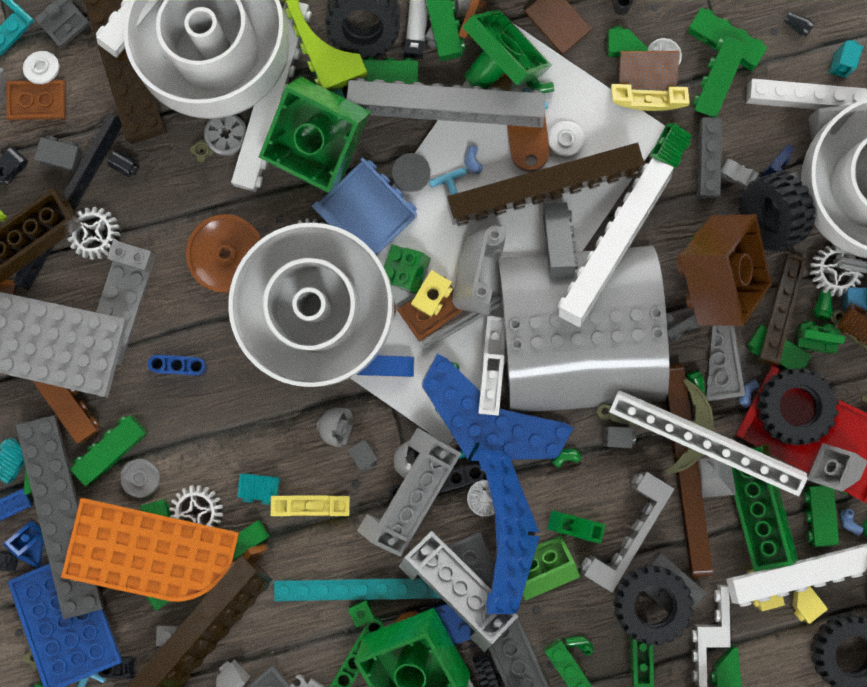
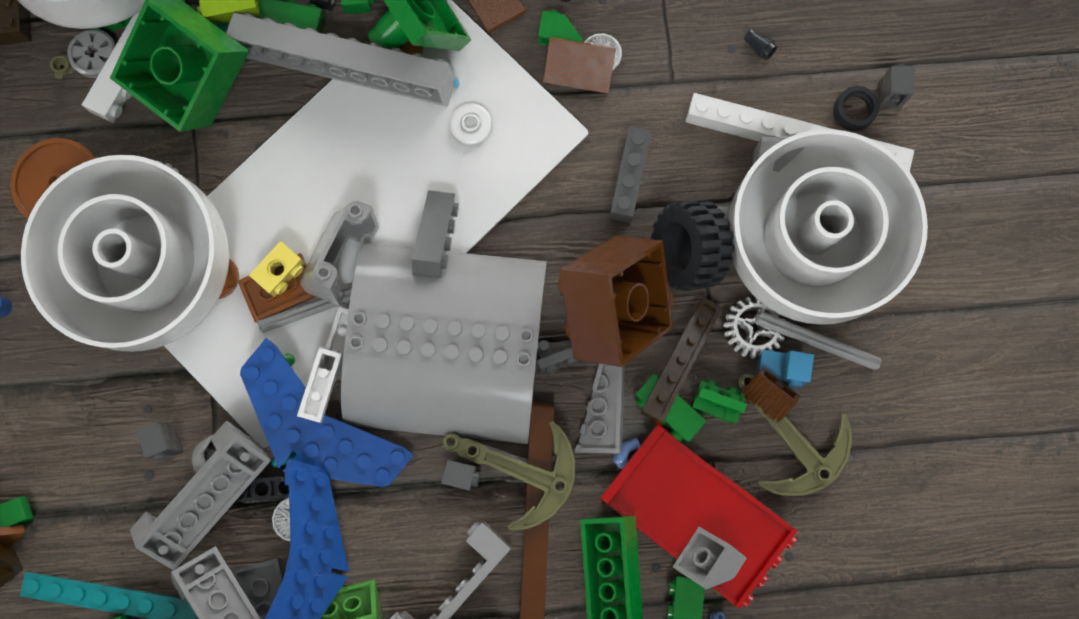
camera: 10 degrees right, 5 degrees down
(258, 488) = (32, 458): teal brick -> none
(309, 505) = (84, 489): light yellow slope -> none
(335, 426) = (137, 403): light grey cylinder -> none
(367, 207) = (228, 162): medium blue panel -> none
(390, 366) = (212, 344): blue beam -> none
(406, 268) = (256, 235): green brick -> none
(411, 172) = (288, 130): dark grey tile -> none
(448, 179) = (329, 145): medium azure piece -> none
(471, 162) = (358, 131): medium blue arm -> none
(526, 143) = (430, 121): dark orange tile -> none
(535, 84) = (455, 64): green arm -> none
(545, 183) = (431, 168): dark brown brick -> none
(567, 455) = (399, 486): green arm -> none
(576, 526) = (392, 572): green brick -> none
(615, 242) = (495, 248): white brick -> none
(650, 99) = (574, 98): light yellow slope -> none
(671, 145) = (588, 153): green brick -> none
(697, 379) = (569, 427): green cone -> none
(709, 443) = (560, 501): white brick -> none
(710, 28) = (675, 46): green brick -> none
(715, 478) = (567, 543): light grey slope -> none
(720, 76) = (658, 83): green brick -> none
(734, 173) = (656, 195): light grey leg -> none
(781, 159) = (710, 190): dark blue wing -> none
(823, 308) = (732, 366): green cone -> none
(823, 400) = (708, 473): black tyre -> none
(846, 59) = (805, 89): teal brick -> none

